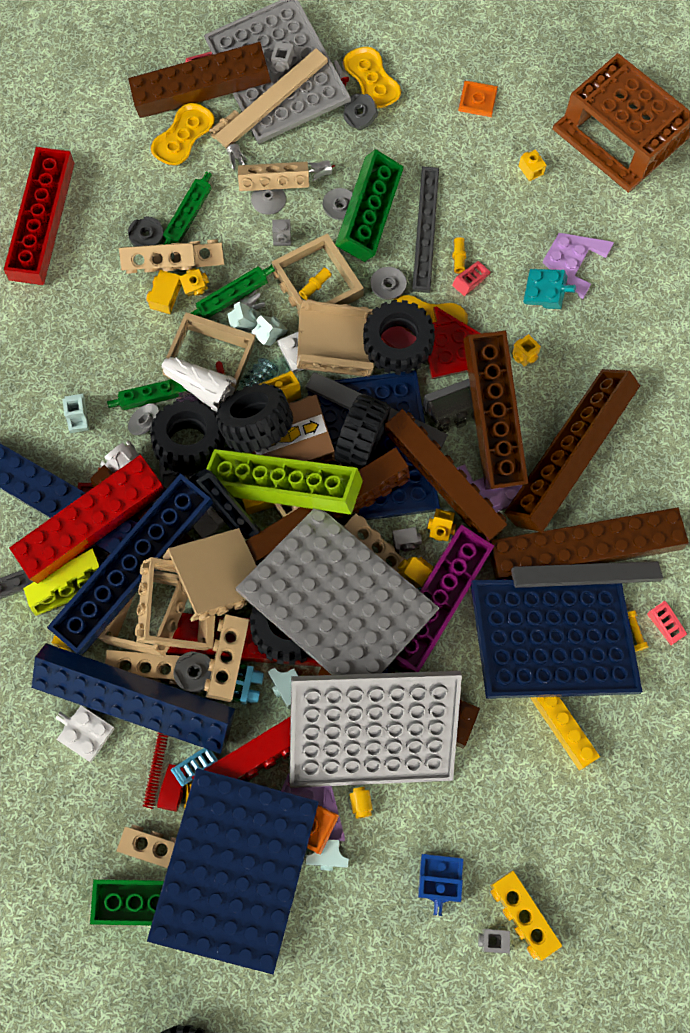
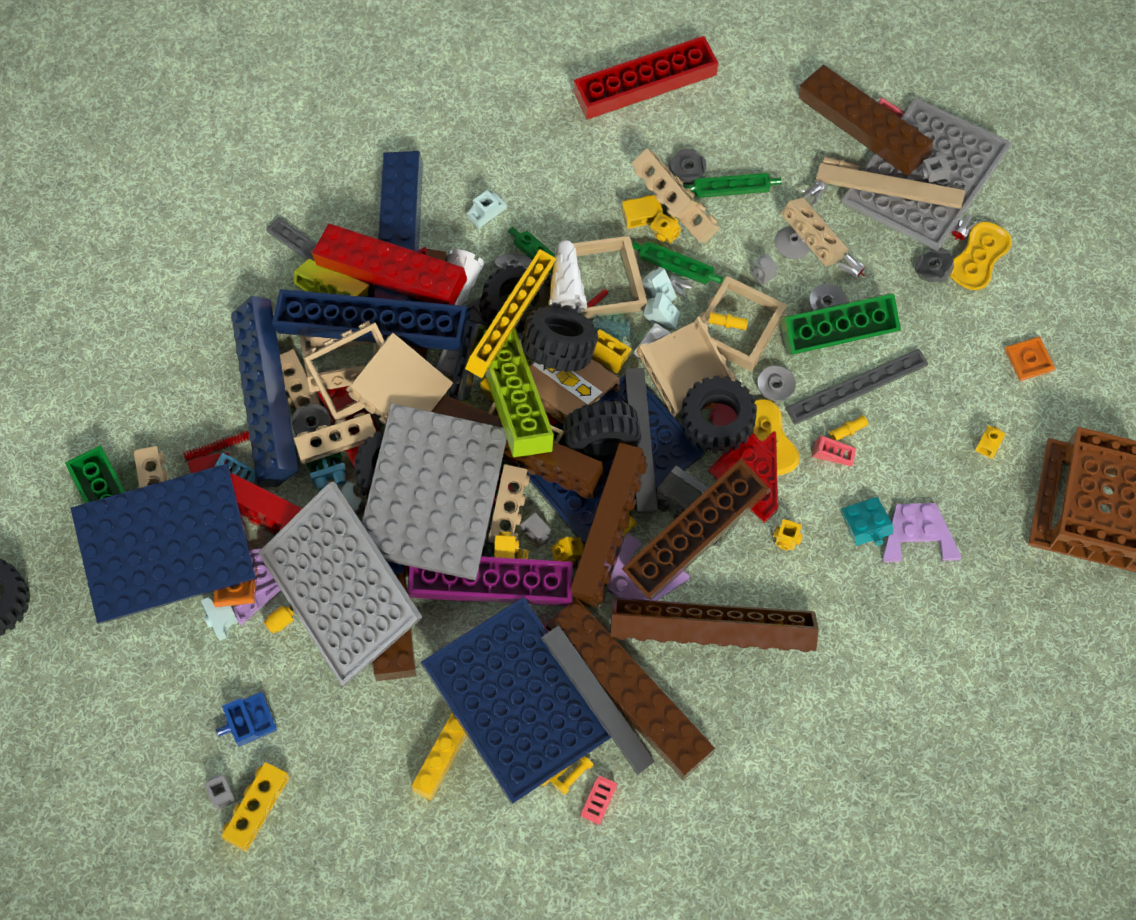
camera: 60 degrees right, 5 degrees down
(84, 733) = (217, 374): white plate -> none
(188, 125) = (790, 138): yellow plate -> none
(210, 442) = (510, 314): none -> yellow brick

